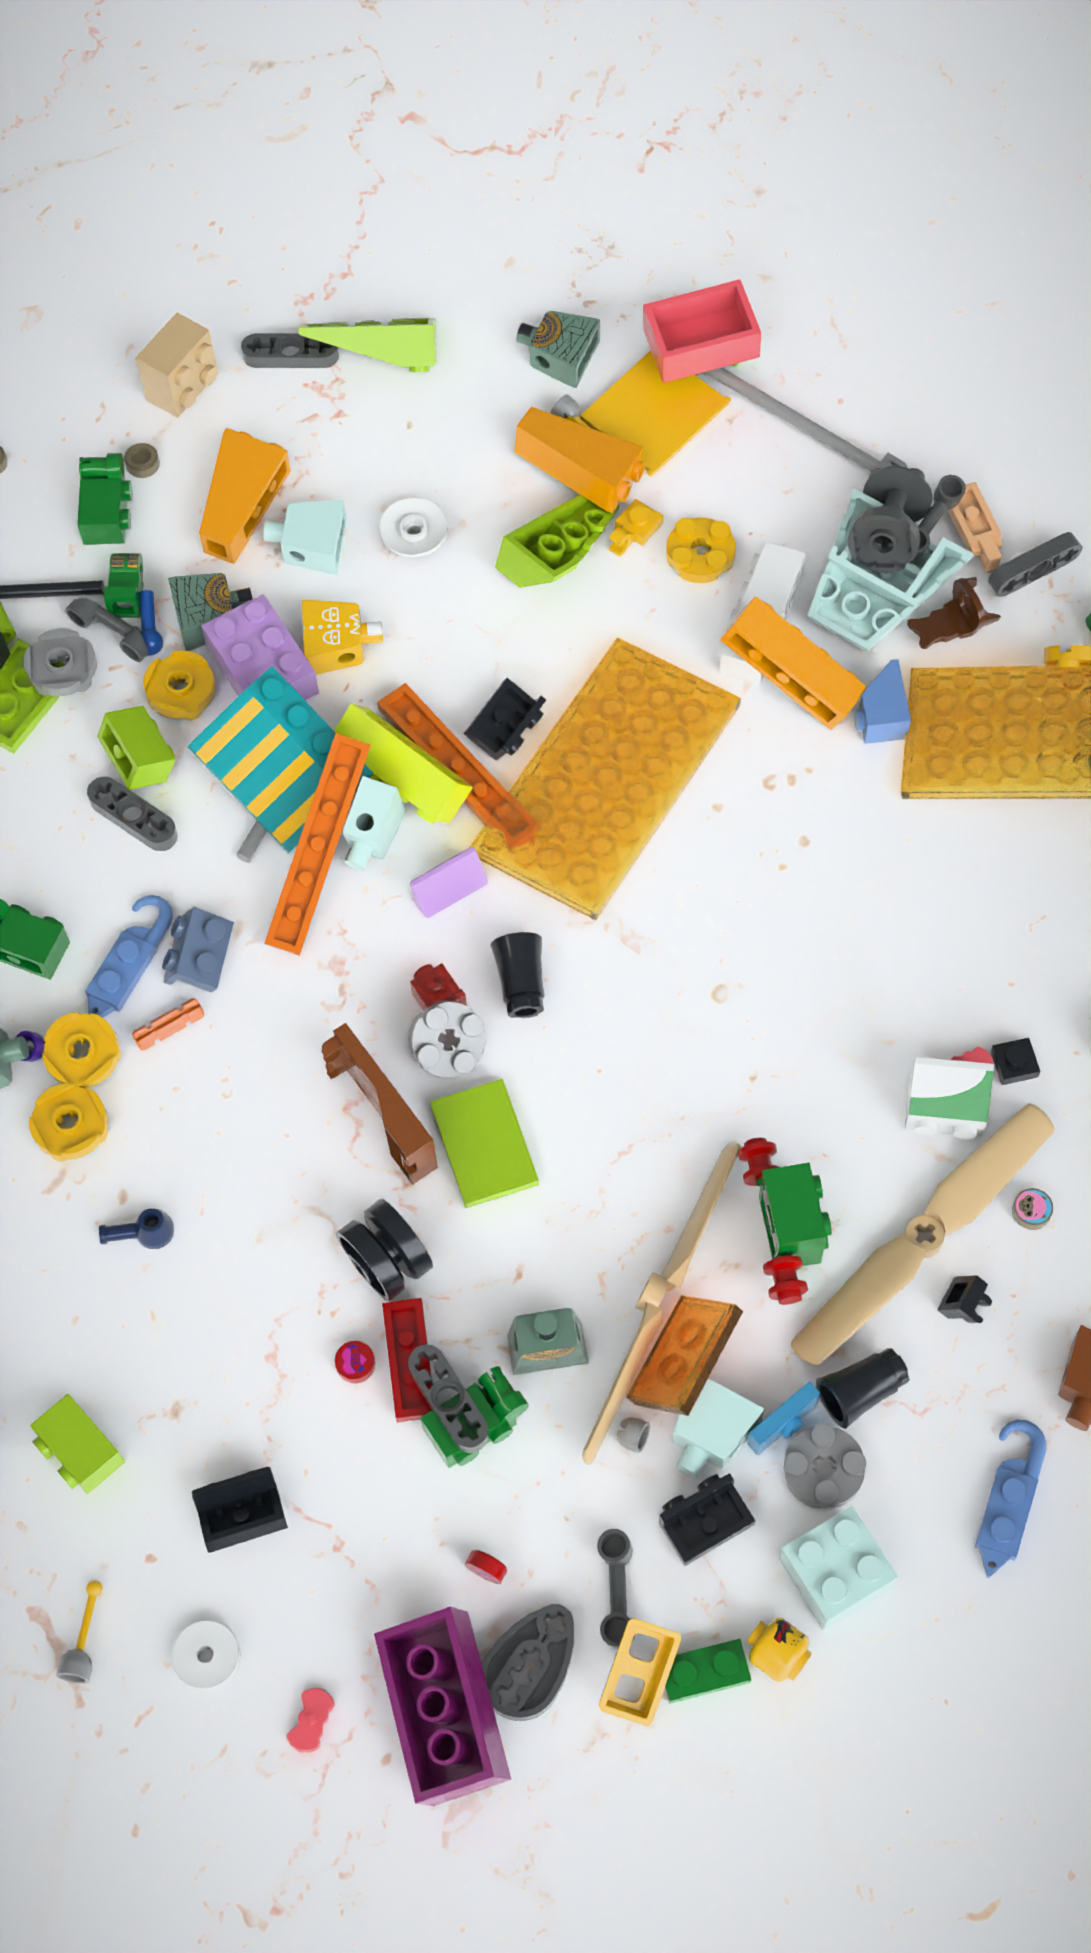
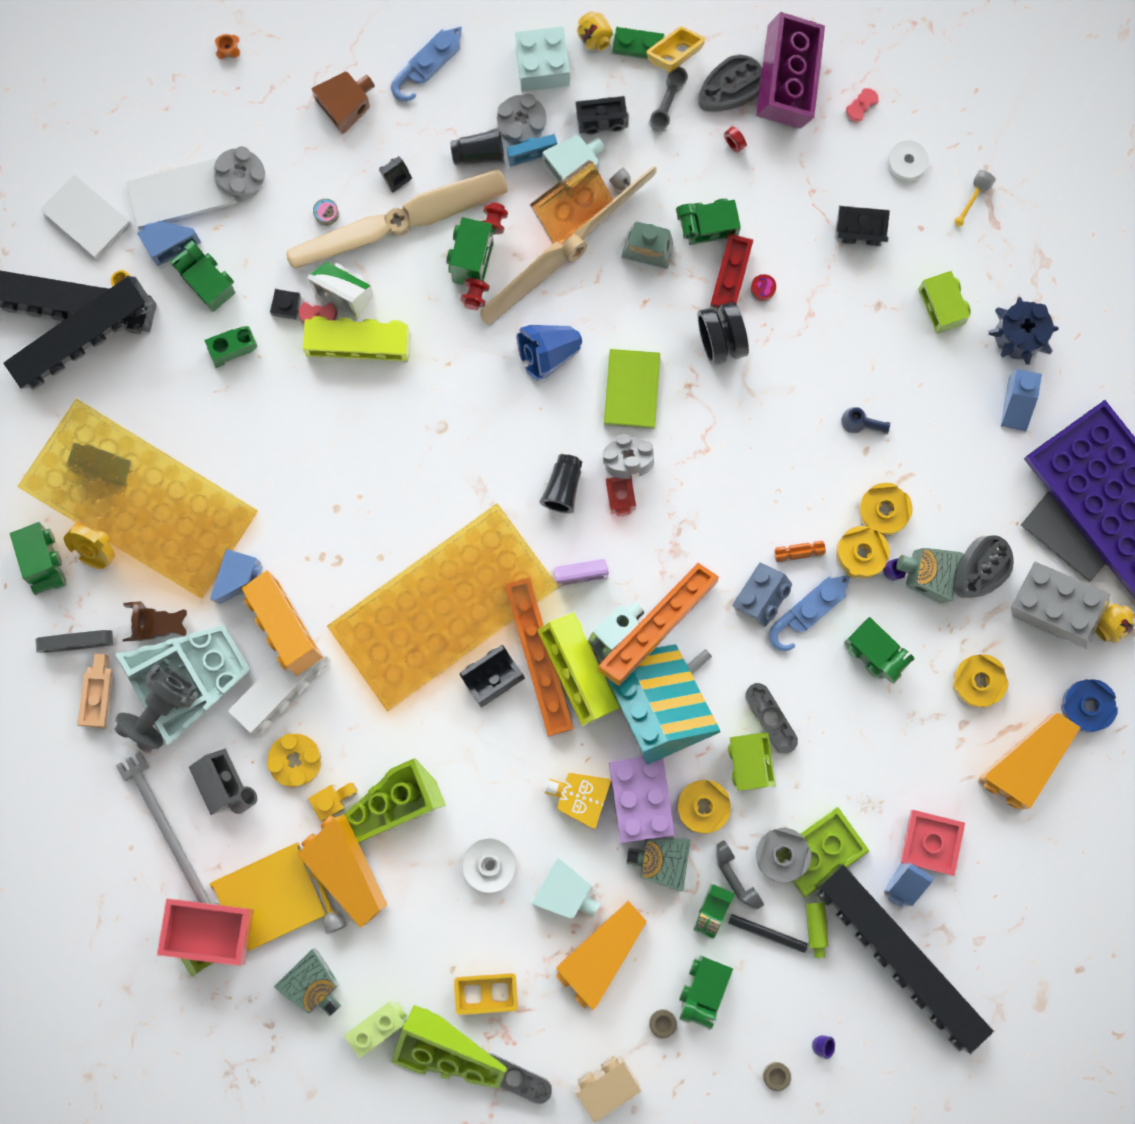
camera: 160 degrees left, 15 degrees up
(152, 637) = (709, 859): blue bar -> none
(352, 404) = (487, 1004): none -> yellow piece
(406, 1136) = (681, 400): dark orange piece -> none
(466, 333) = (376, 1028): none -> yellowish green brick
(473, 1417) = (731, 243): dark grey beam -> none
(621, 1137) = (547, 348): none -> blue cone
(771, 484) = (221, 784): none -> dark grey hinge
(890, 1047) = (356, 339): none -> neon yellow brick
(946, 496) = (103, 716): dark grey bar -> none
(1055, 971) = (230, 345): none -> green leg

